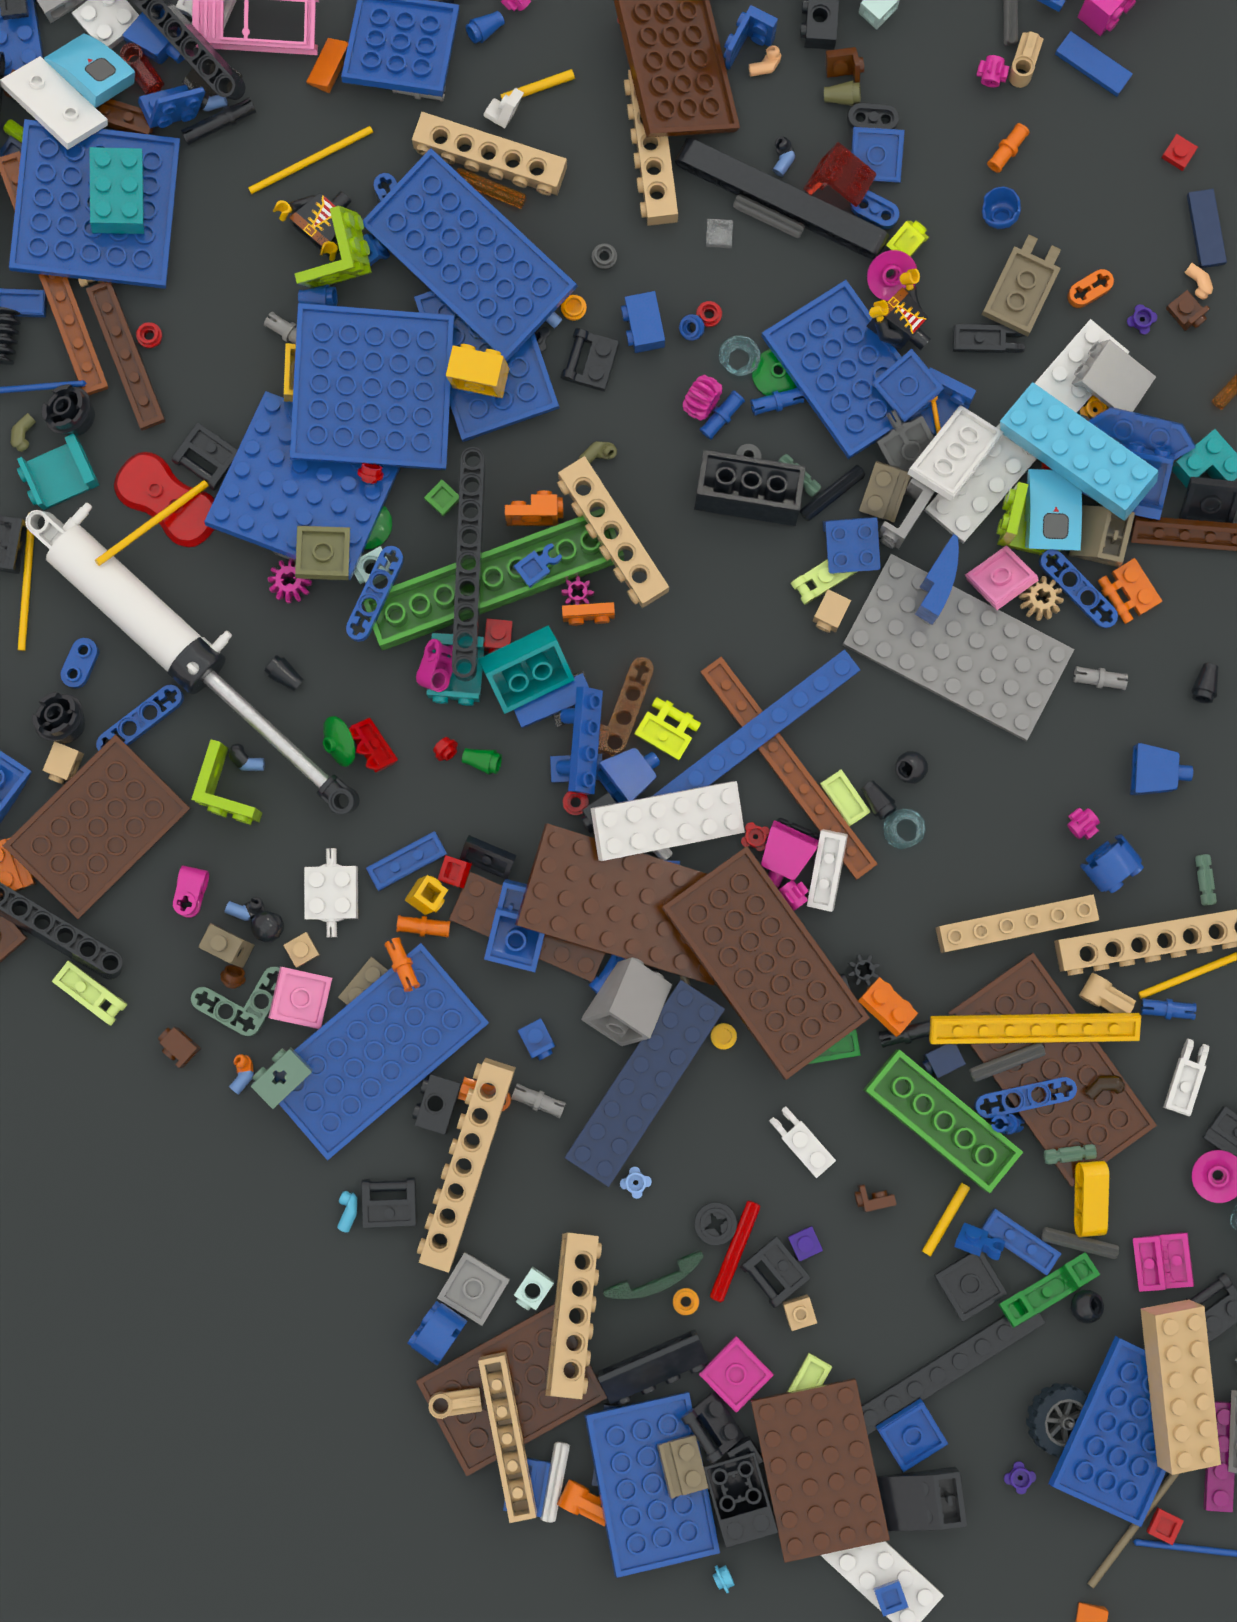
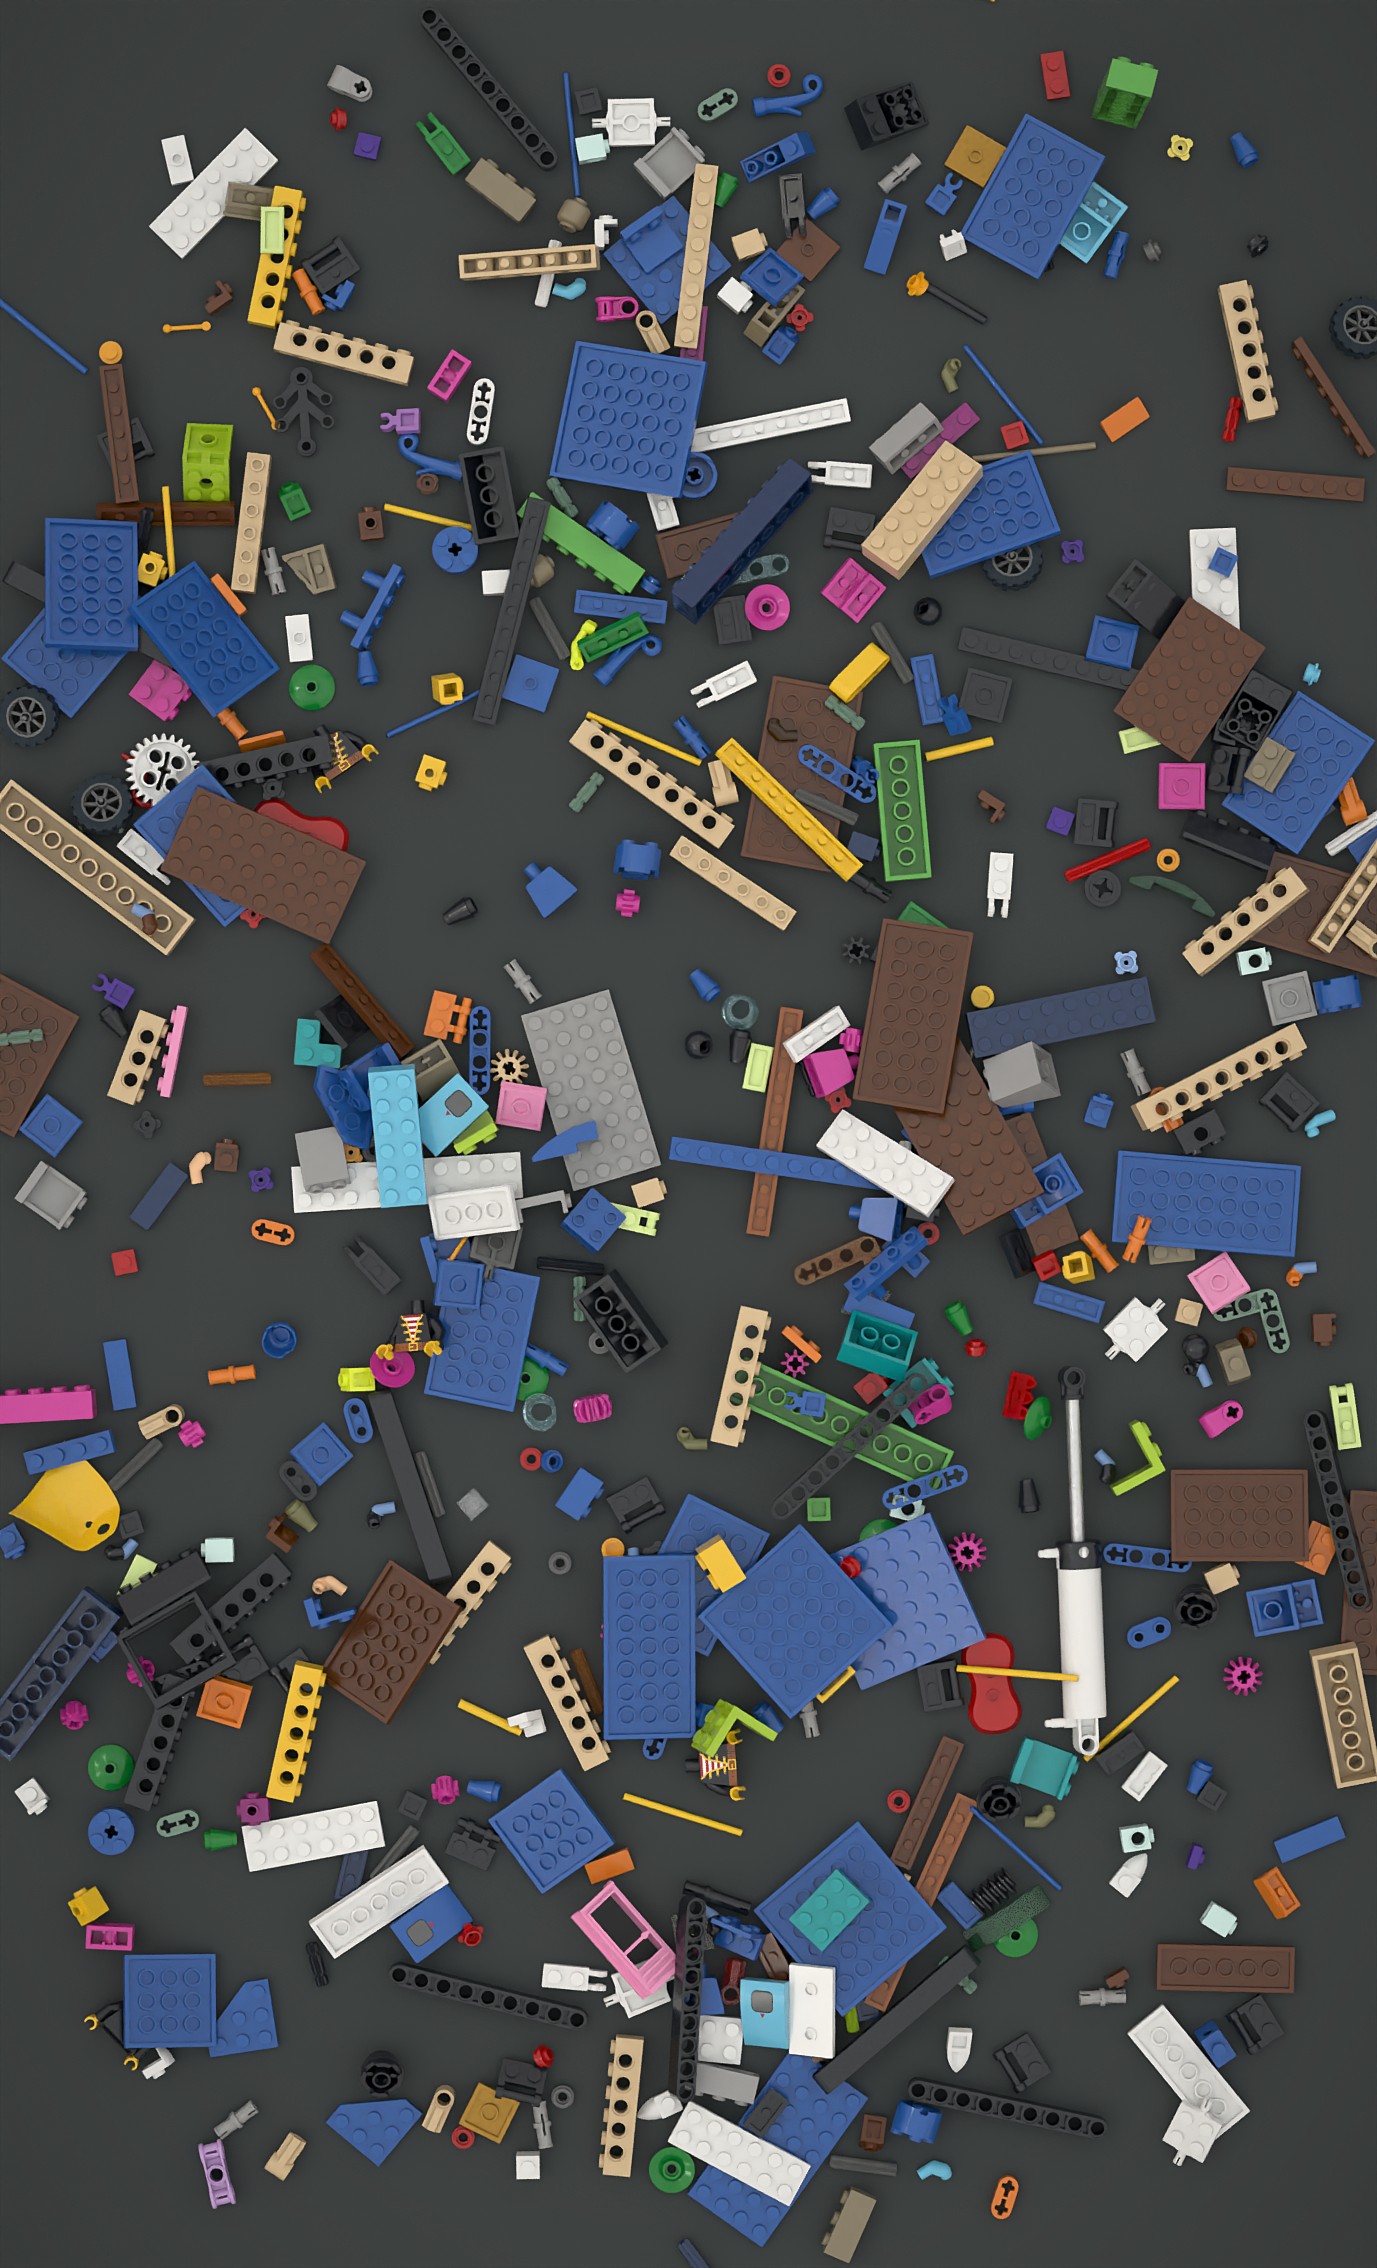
camera: 130 degrees left, 5 degrees up
(296, 1071) = (1267, 1237): sand green brick -> none
(322, 553) = (933, 1542): olive plate -> none
(543, 511) = (765, 1437): orange plate -> none
(663, 735) = (831, 1220): neon yellow plate -> none
(722, 415) = (589, 1385): blue pin -> none
(799, 1312) = (1106, 784): tan brick -> none
(843, 173) = (360, 1461): clear red bracket -> none
(884, 491) = (538, 1233): dark tan plate -> none
(888, 1006) = (864, 913): orange bracket -> none
(953, 820) = (706, 987): none -> blue cone
(1022, 288) = (318, 1275): dark tan tile -> none
(1049, 1290) = (941, 644): green slope -> none

